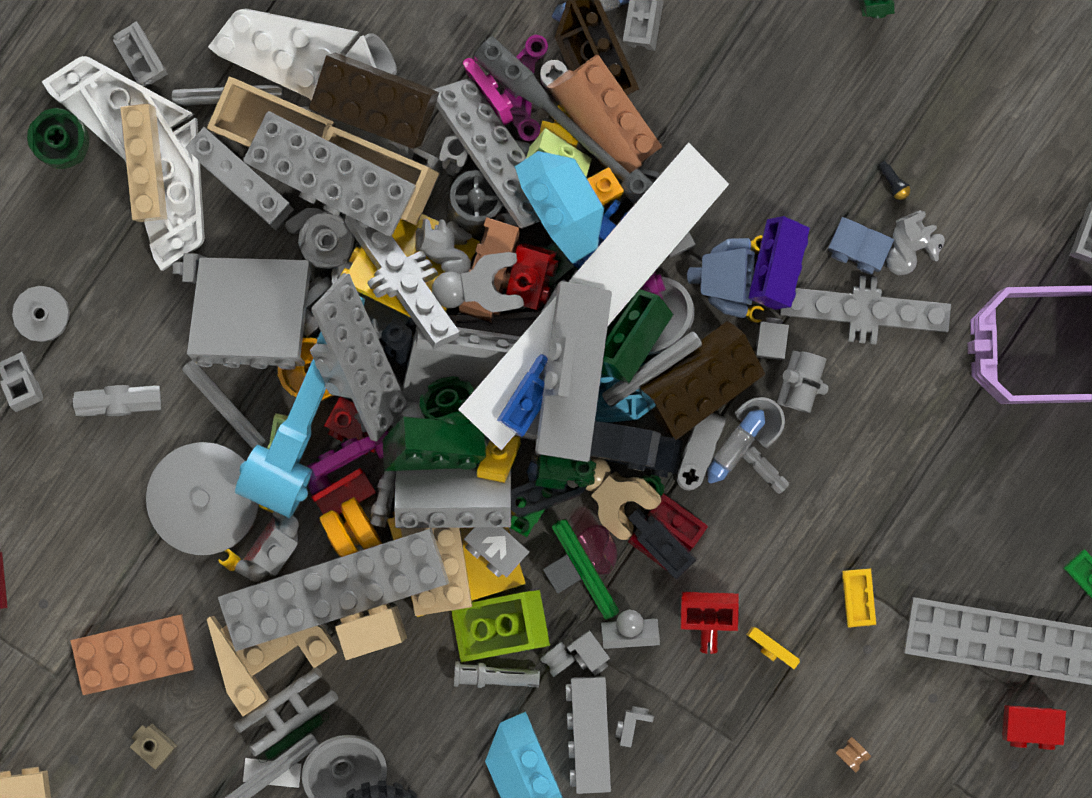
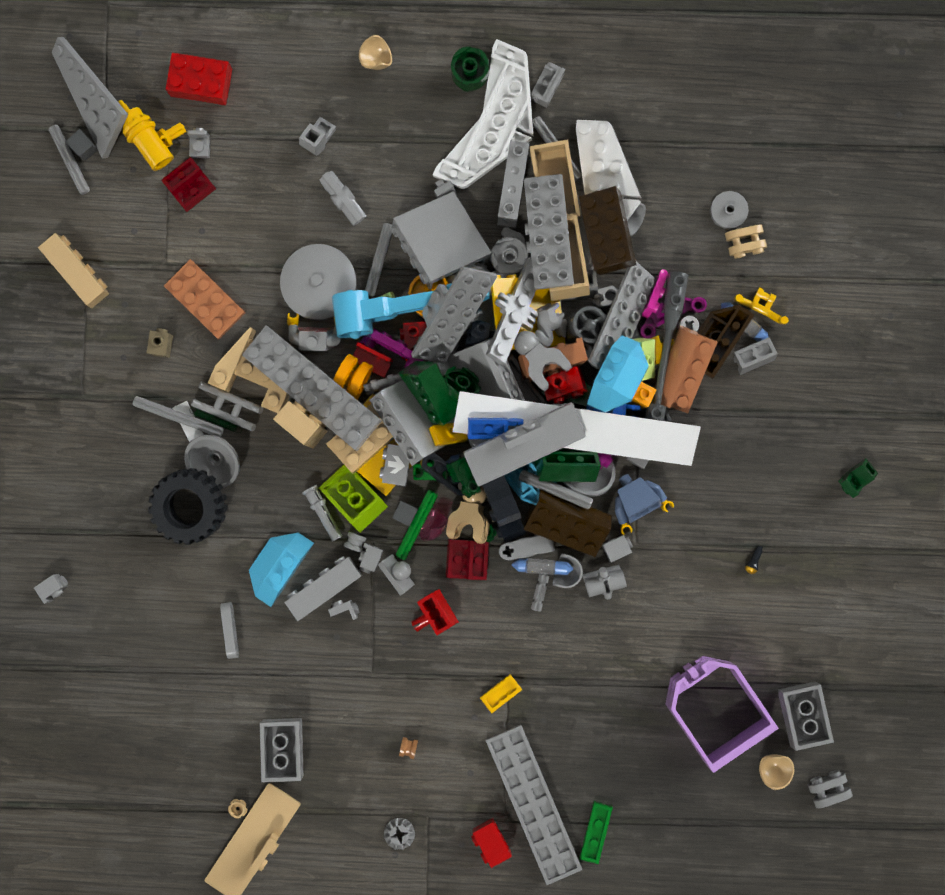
camera: 60 degrees right, 0 degrees up
(55, 316) = (364, 133): light grey plate -> none
(143, 162) = (487, 124): tan brick -> none
(662, 543) = (459, 560): black hinge -> none
(772, 649) = (439, 662): yellow plate -> none
(779, 263) = (664, 524): dark purple brick -> none
(860, 245) = (704, 564): sand blue brick -> none
(868, 310) = (669, 591): light grey hinge -> none
(908, 238) = (728, 590): light grey animal -> none

